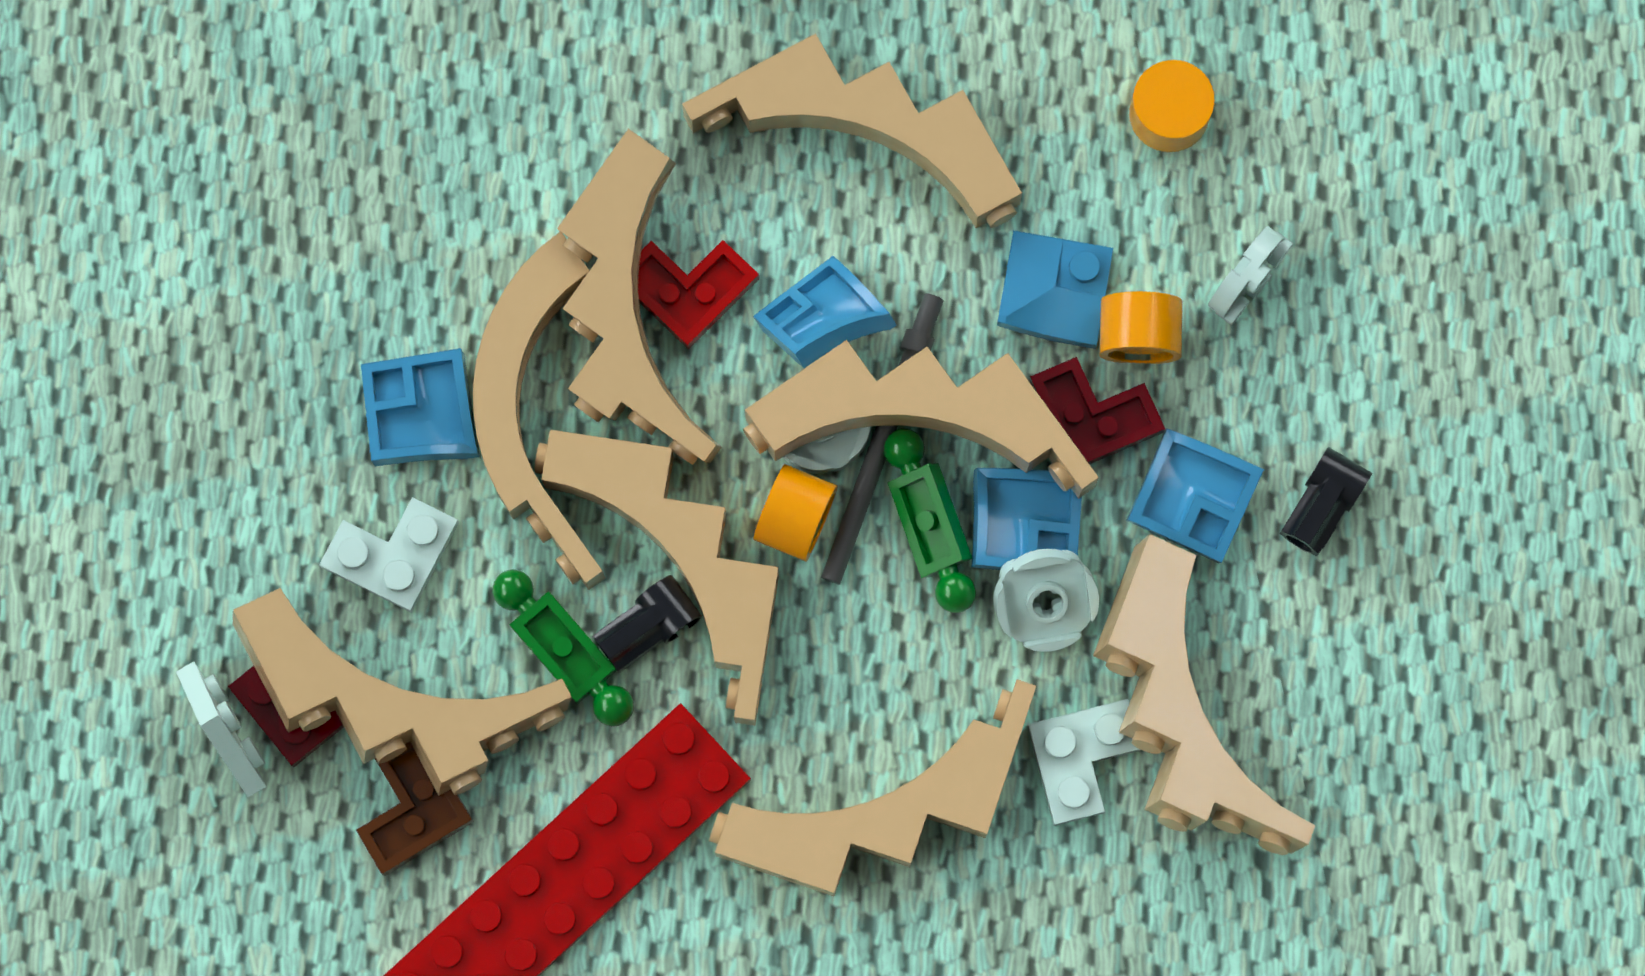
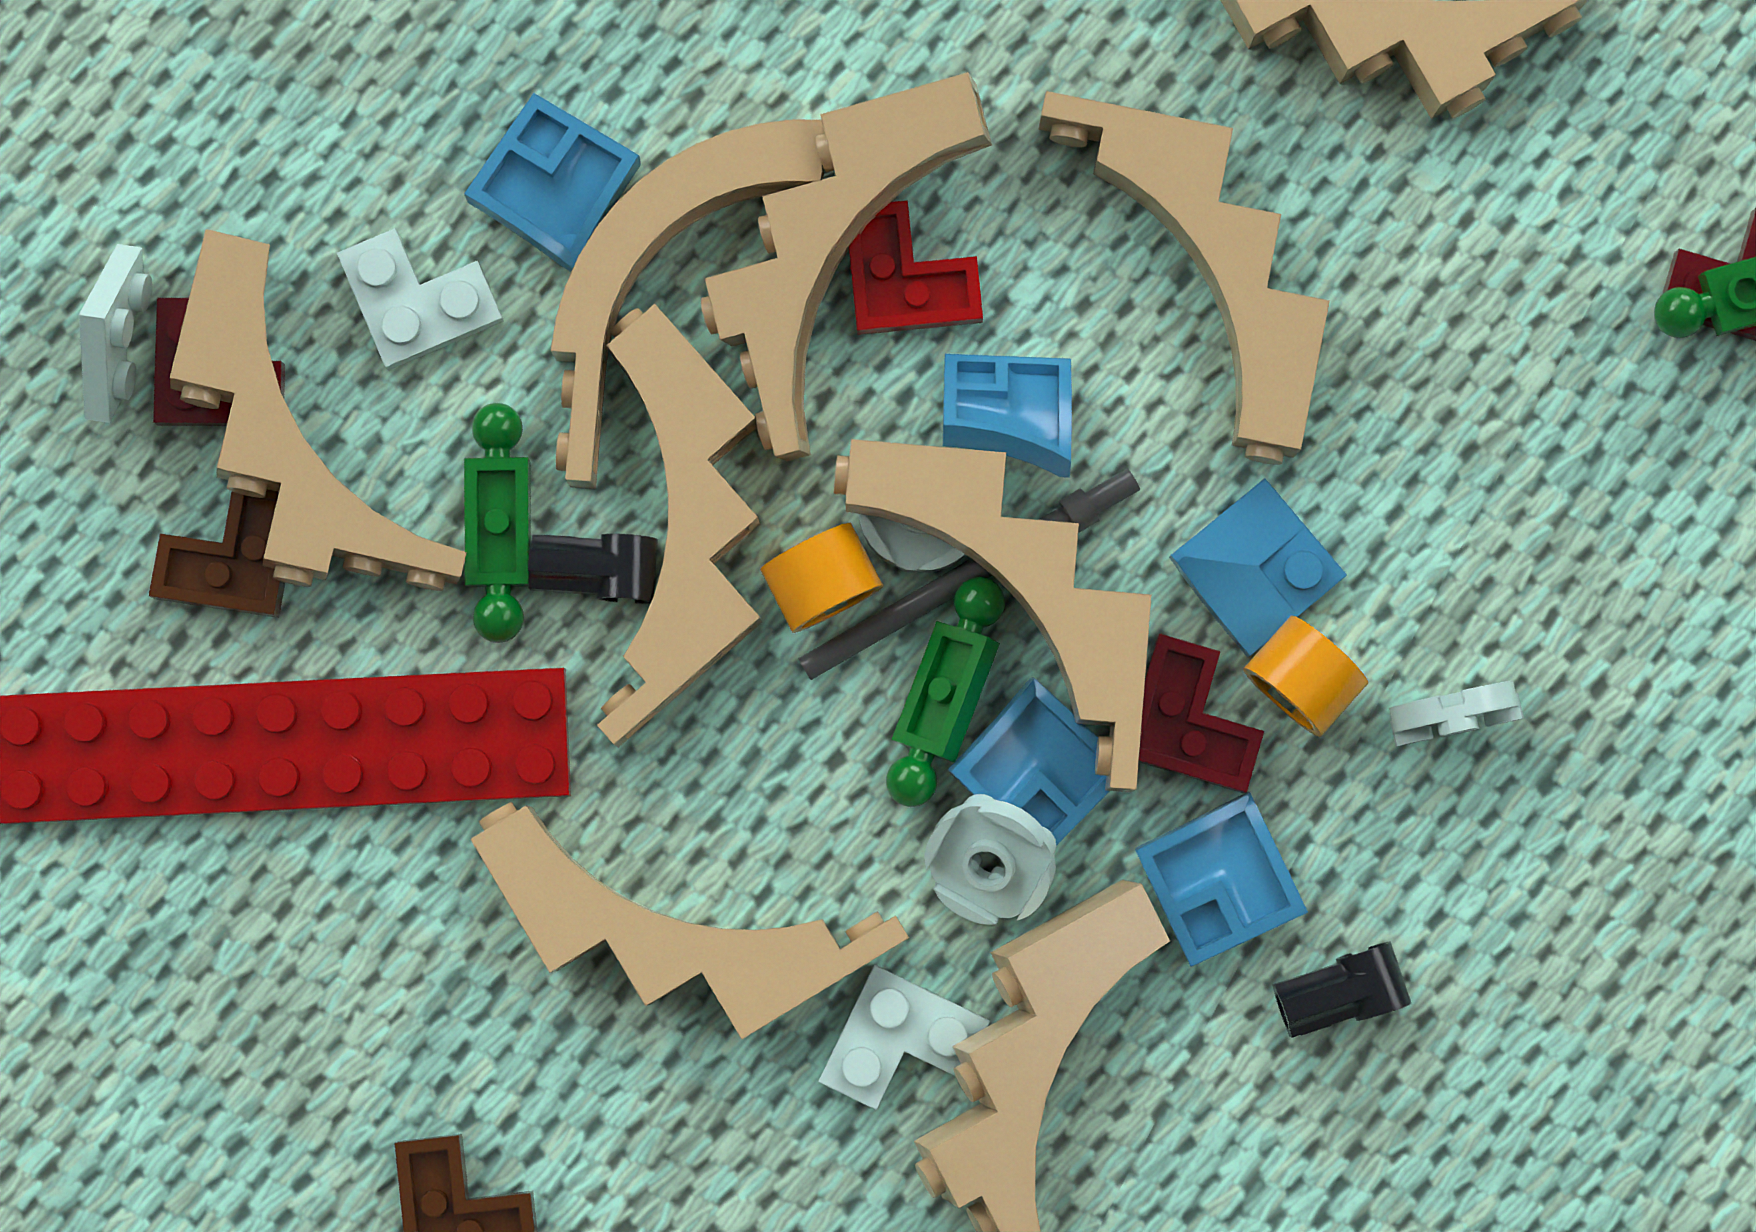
camera: 40 degrees right, 5 degrees up
(1171, 105) = (1522, 483): light orange piece -> none

